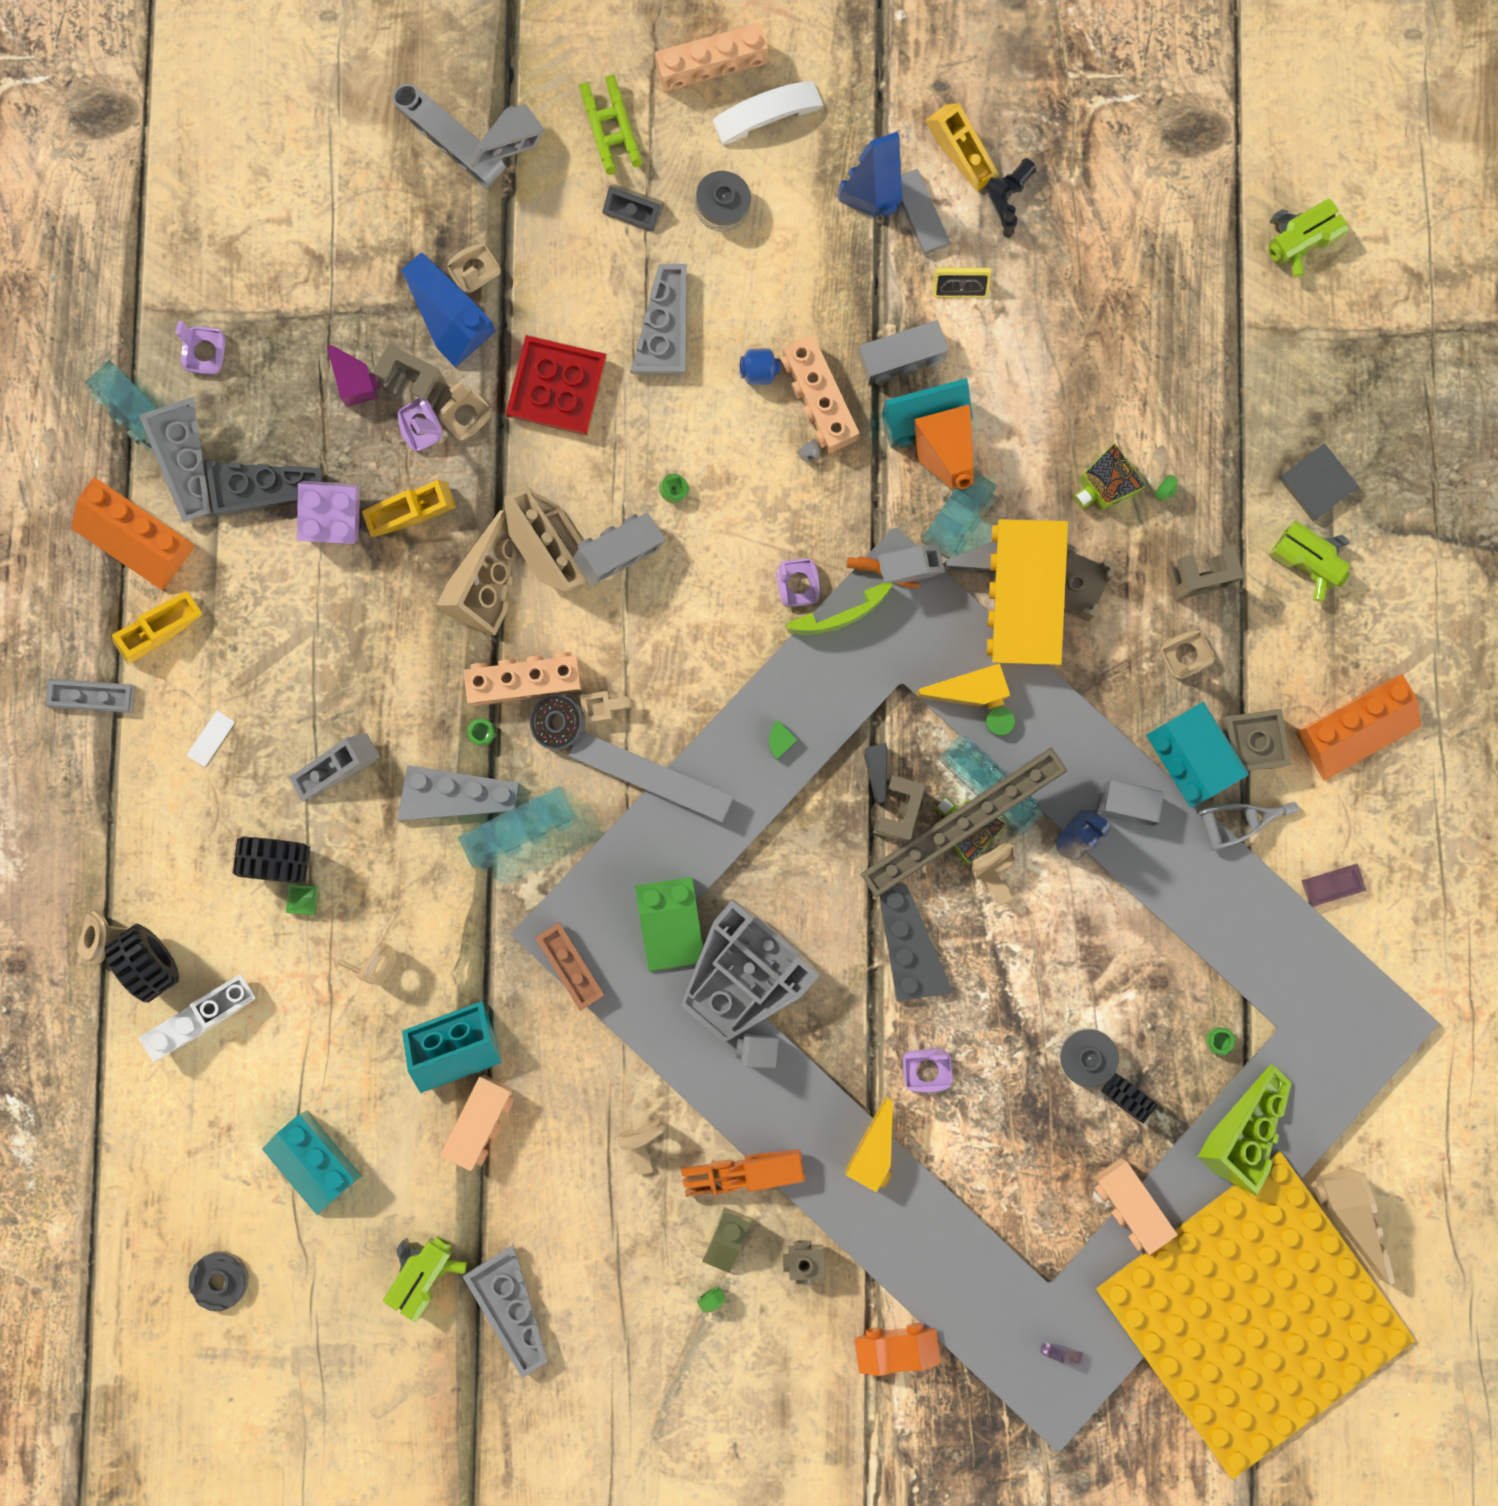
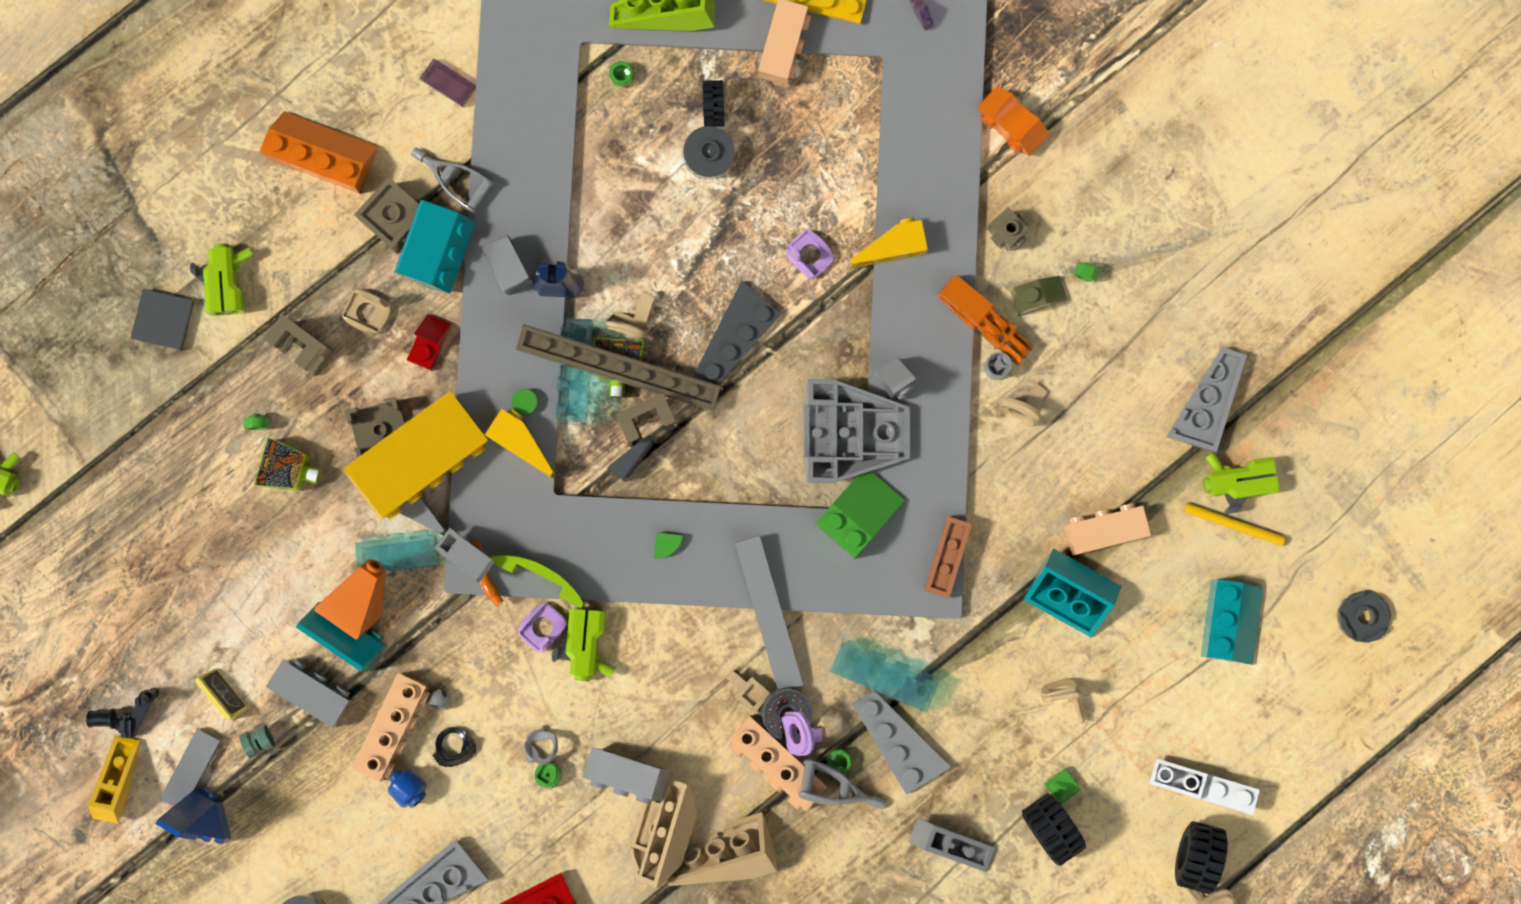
camera: 125 degrees left, 0 degrees up
(389, 1237) = (1234, 524): none -> yellow bar
(454, 717) = (845, 787): none -> light grey piece
(521, 714) = (803, 742): none -> lavender piece
(692, 1153) = (1000, 362): none -> light grey wheel
(702, 490) = (537, 735): none -> light grey piece
(756, 602) = (582, 644): none -> lime piece
(757, 417) = (467, 750): none -> black piece
(899, 281) = (257, 740): none -> sand green wheel
(1118, 685) = (428, 342): none -> red slope

